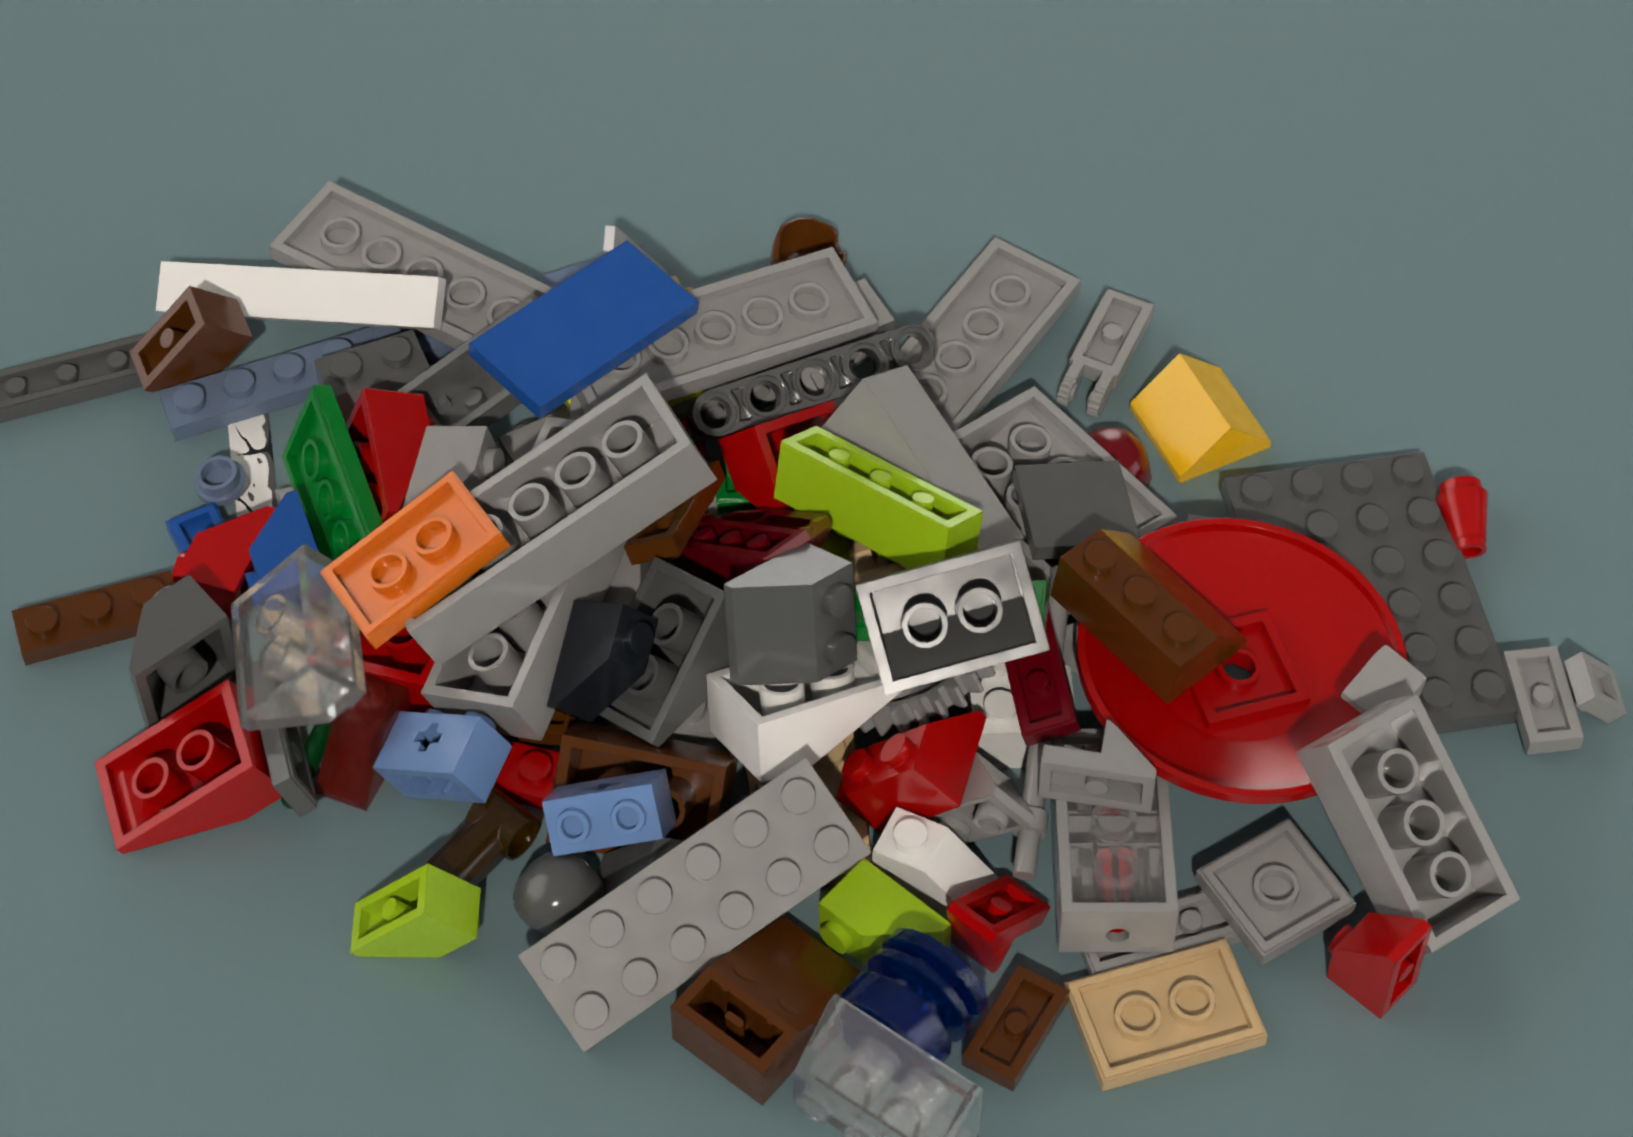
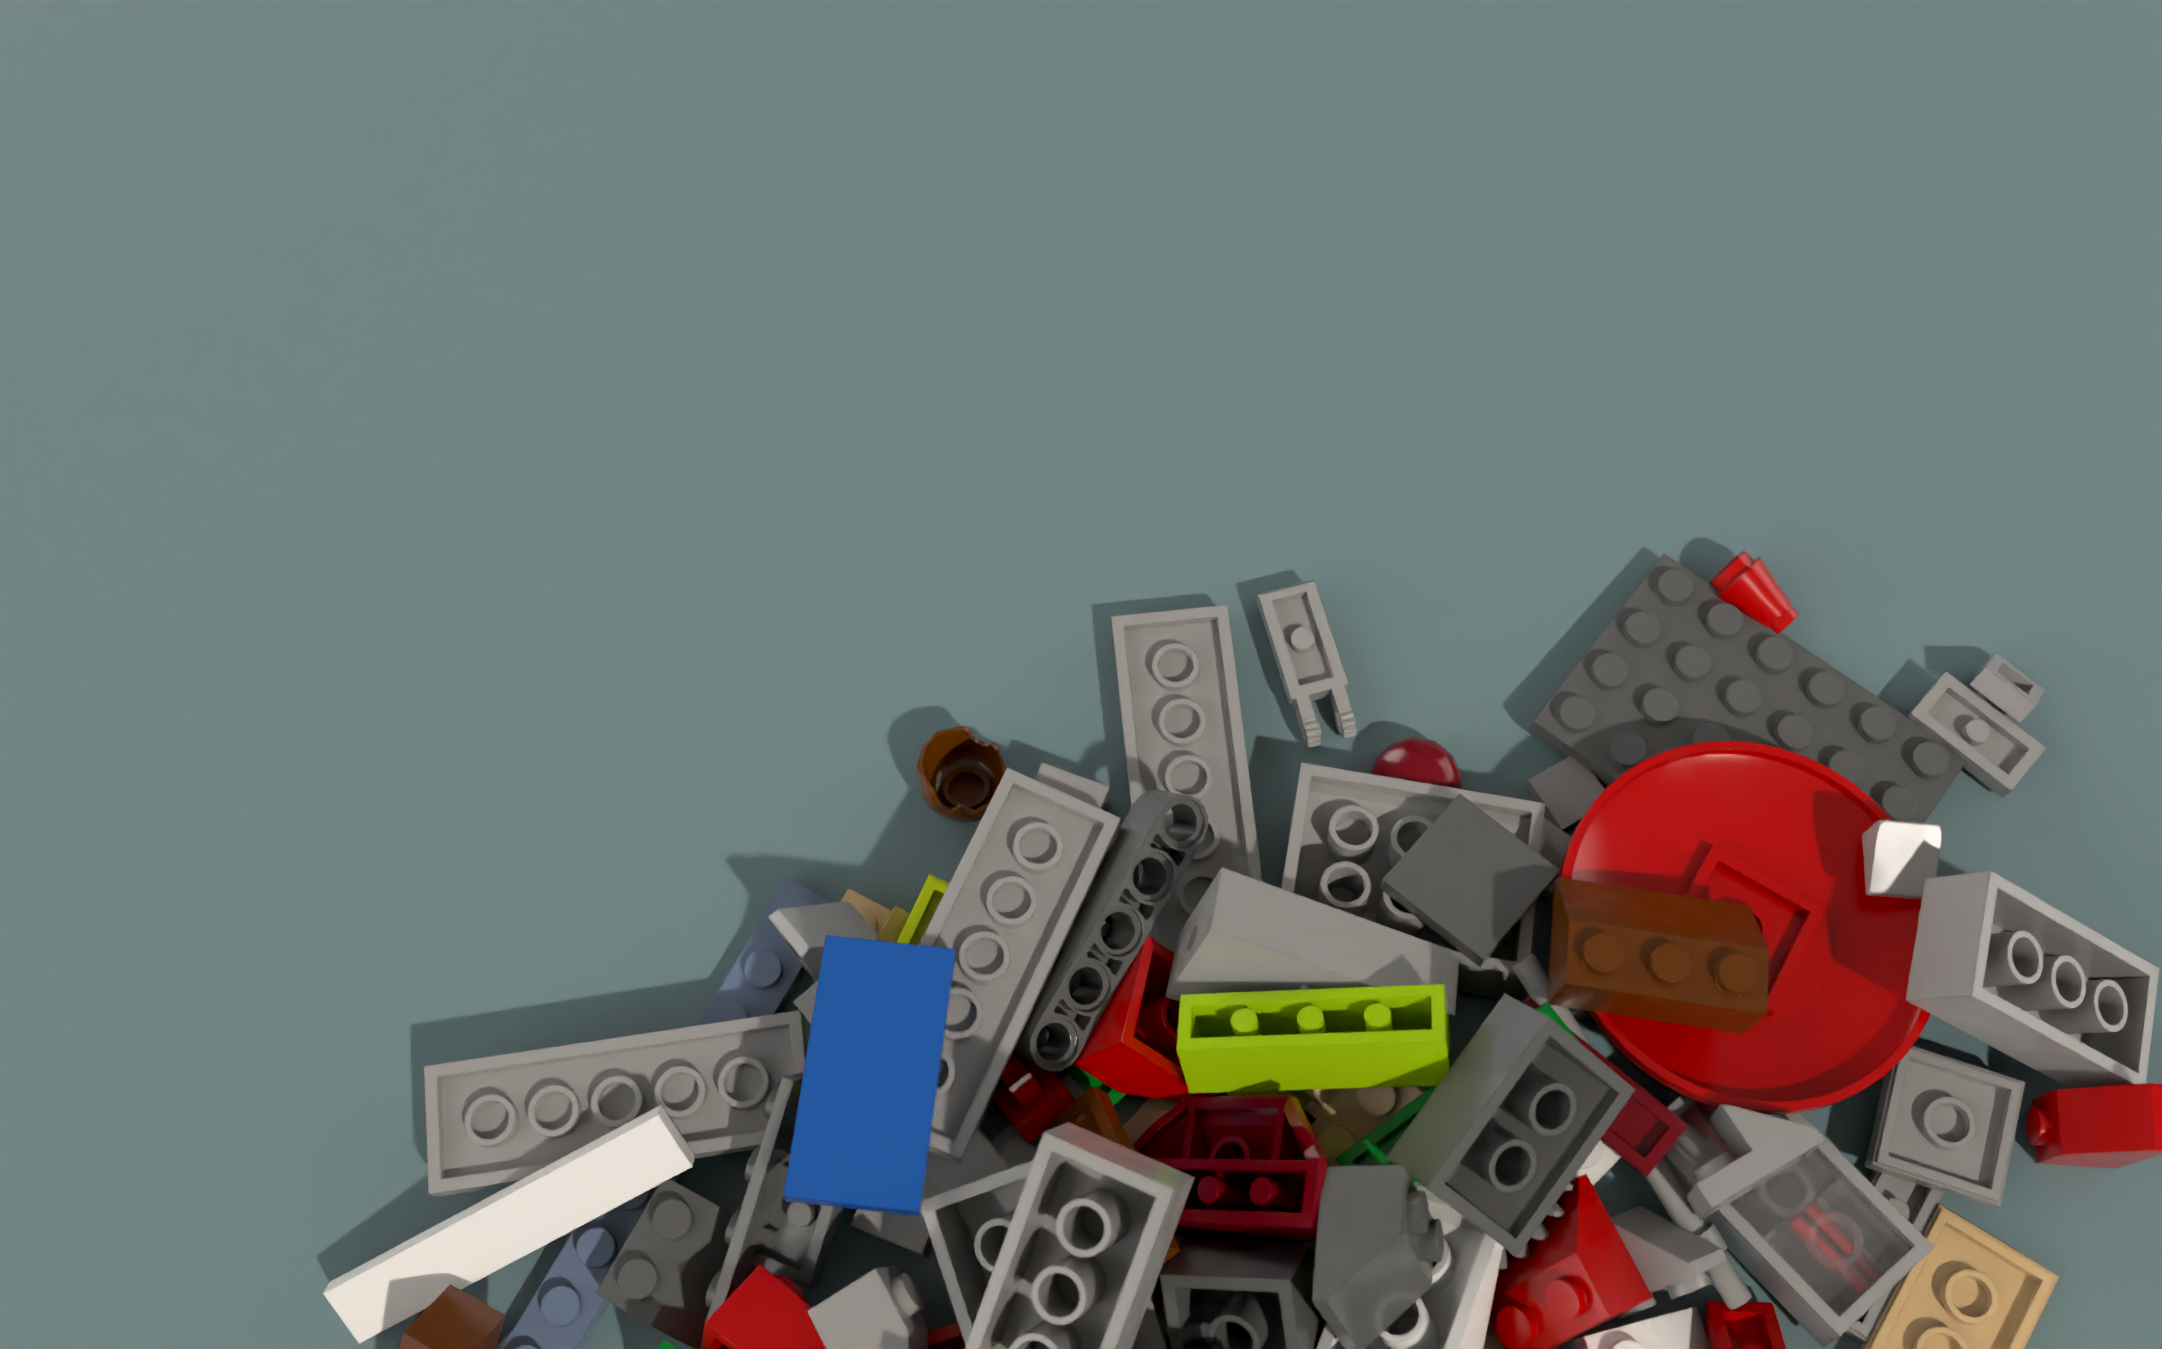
camera: 35 degrees left, 15 degrees up
(1197, 418) = (1446, 671): yellow slope -> none

